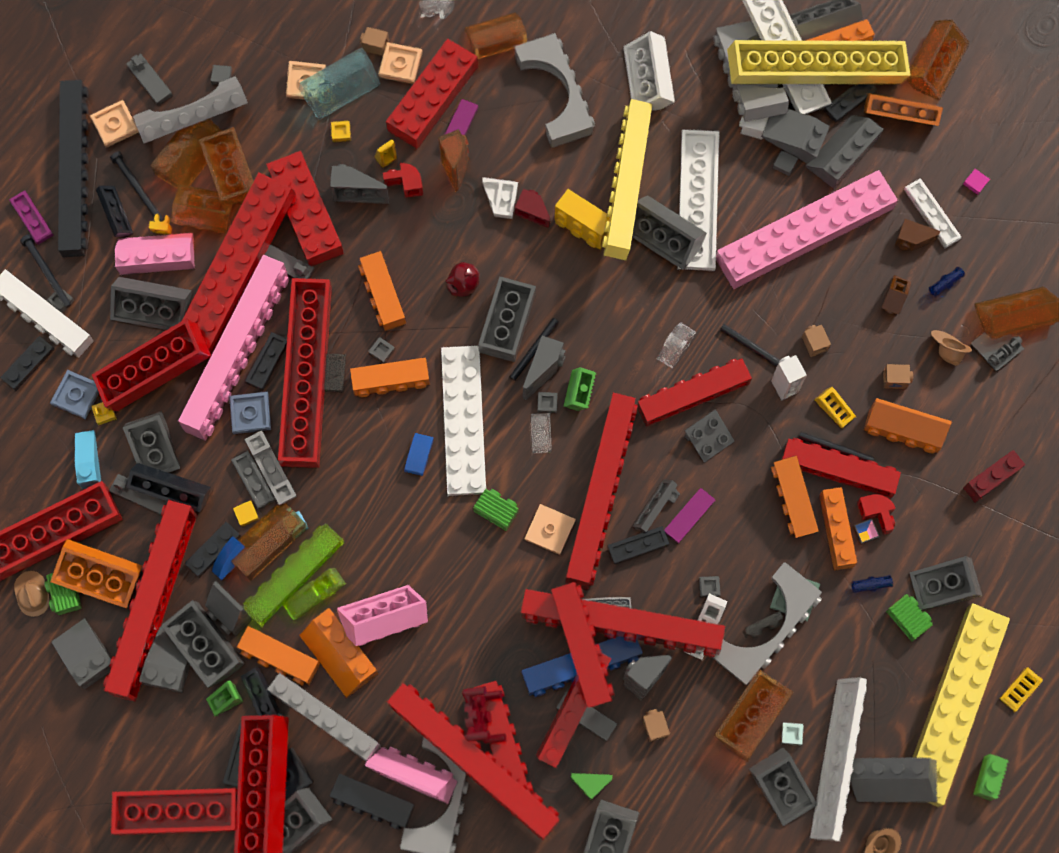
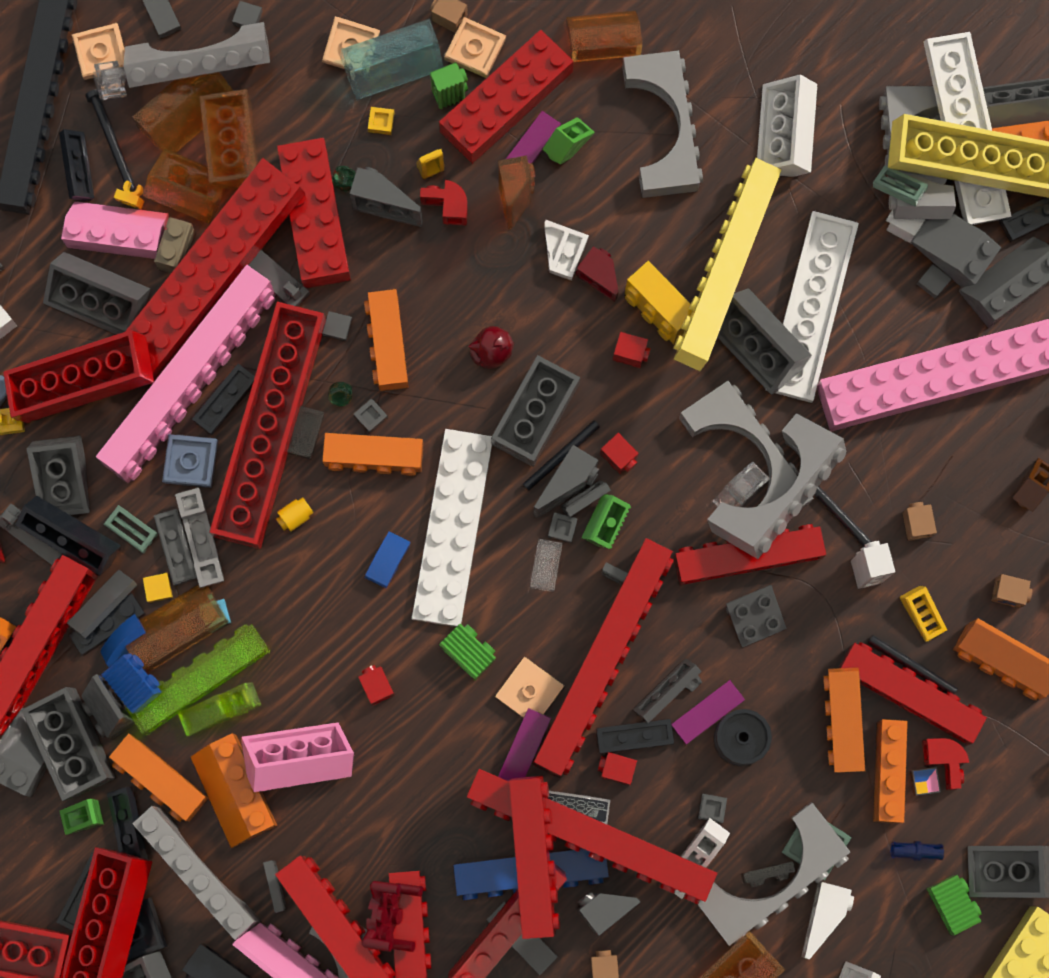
camera: 10 degrees right, 5 degrees up
(127, 142) = (109, 80): none -> clear brick
(203, 254) = (174, 244): none -> dark tan brick
(205, 533) = (102, 604): none -> dark grey tile
(230, 480) = (147, 541): none -> sand green tile
(243, 585) = (132, 682): none -> blue brick
(323, 177) = (343, 178): none -> clear green tile
(339, 435) = (294, 514): none -> yellow brick
(341, 289) = (337, 326): none -> dark grey tile
(355, 338) = (340, 393): none -> clear green tile
(386, 93) = (448, 85): none -> bright green brick
(387, 718) = (275, 886): none -> dark grey tile
(431, 549) = (376, 685): none -> red brick
(486, 116) = (567, 140): none -> bright green slope
(556, 566) = (525, 745): none -> magenta tile
(559, 376) = (585, 498): none -> dark grey tile
(569, 259) = (631, 350): none -> red brick
(578, 338) = (619, 454): none -> red brick
(594, 427) = (614, 573): none -> dark grey tile
(630, 572) = (617, 768): none -> red brick
(652, 289) = (727, 411): none -> light grey arch
(694, 368) = (757, 527): none -> light grey arch
(721, 516) = (747, 723): none -> black wheel
(742, 96) = (899, 189): none -> sand green tile
(815, 641) = (827, 912): none -> white slope

